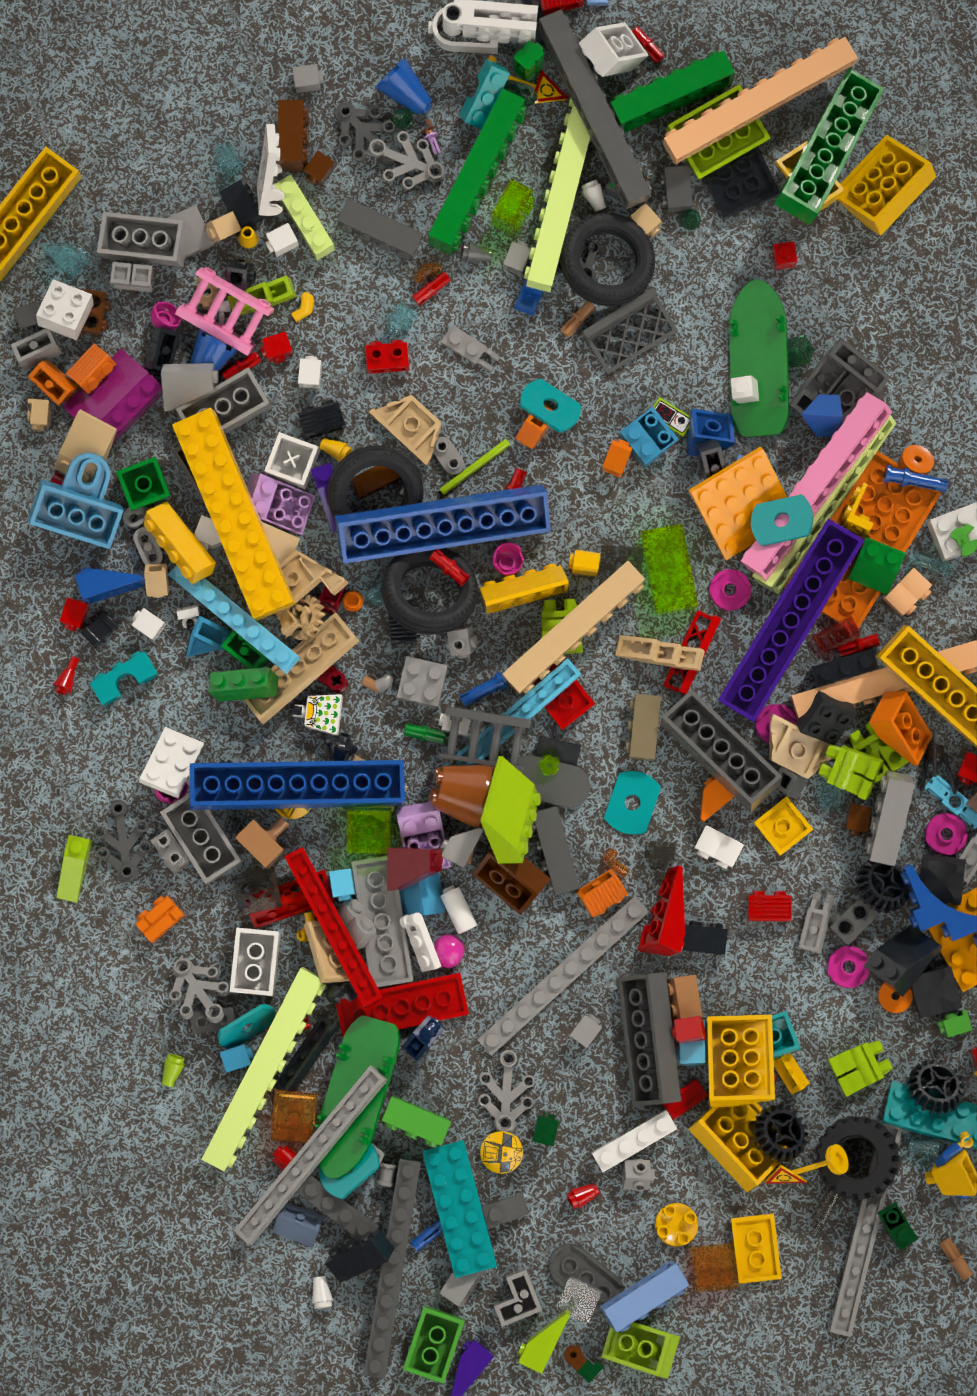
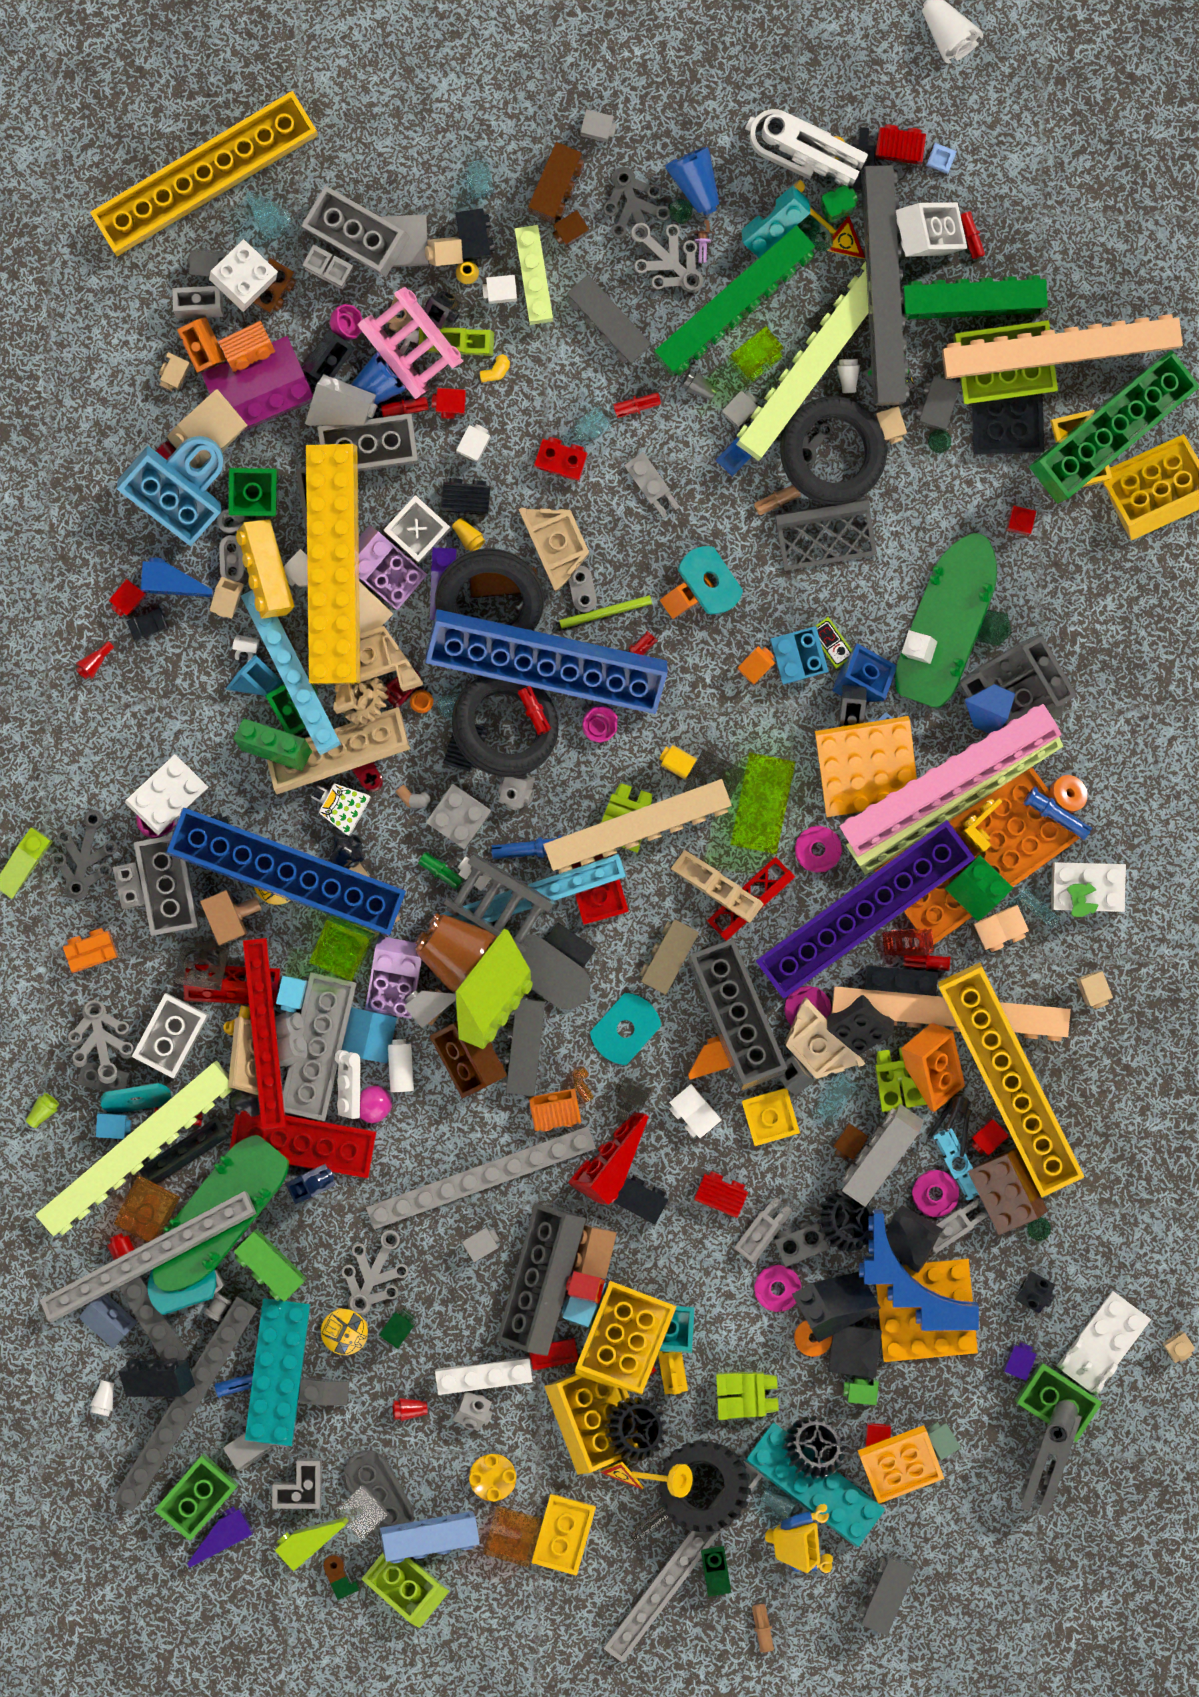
camera: 20 degrees right, 5 degrees up
(106, 684) = (131, 687): teal arch -> none
(148, 624) = (199, 639): white brick -> none
(268, 168) = (512, 218): white hinge -> none
(411, 865) = (369, 1003): dark red slope -> none
(427, 270) = (642, 383): clear orange arm -> none
(524, 589) = (603, 762): yellow slope -> none
(549, 770) = (561, 956): clear neon green plate -> none
(799, 522) = (915, 813): teal piece -> none
(847, 767) = (863, 1089): lime hips -> none

